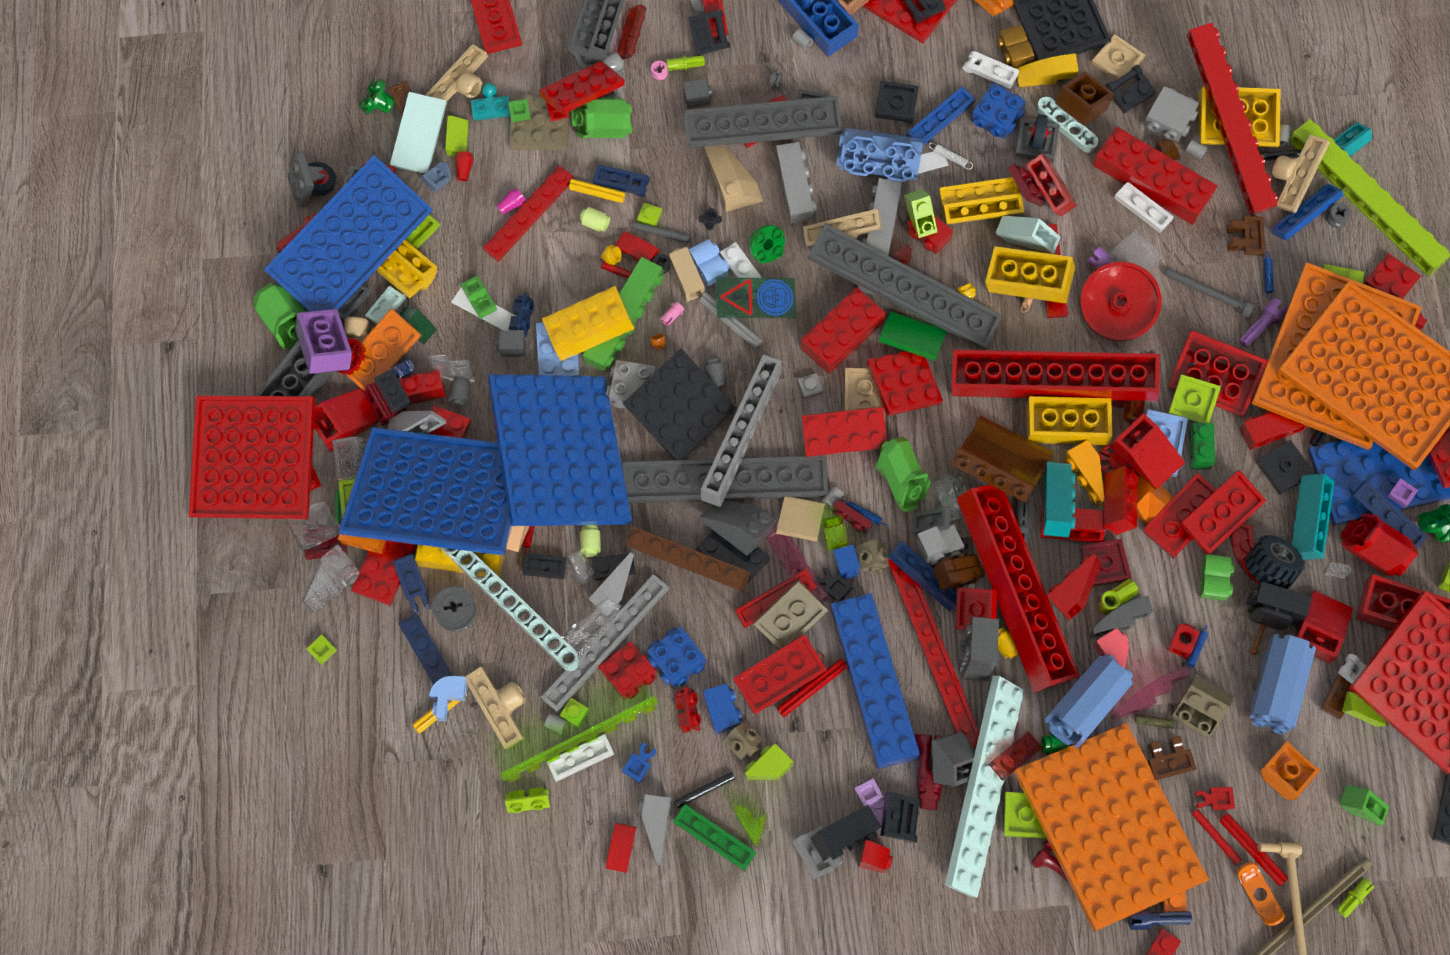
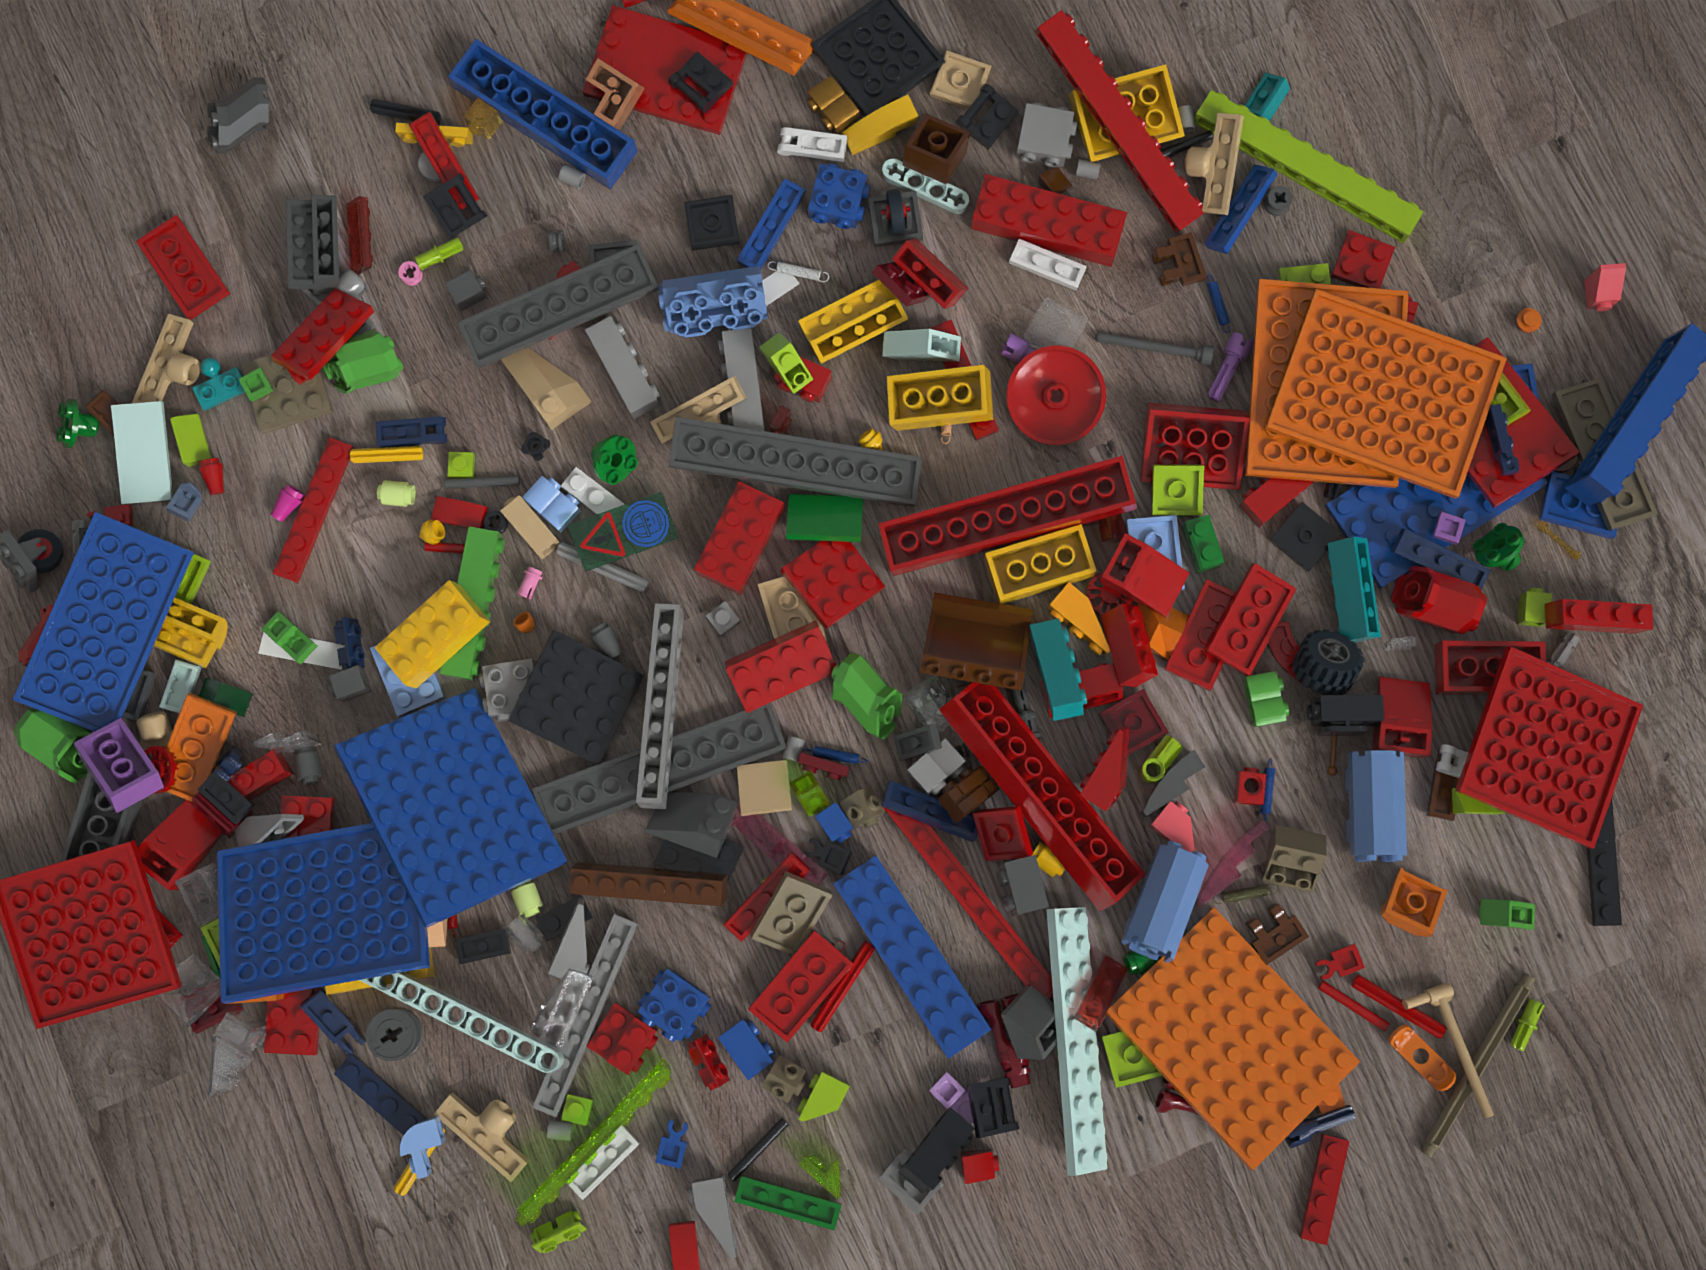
camera: 15 degrees left, 10 degrees up
(321, 649) = (254, 1136): lime plate -> none

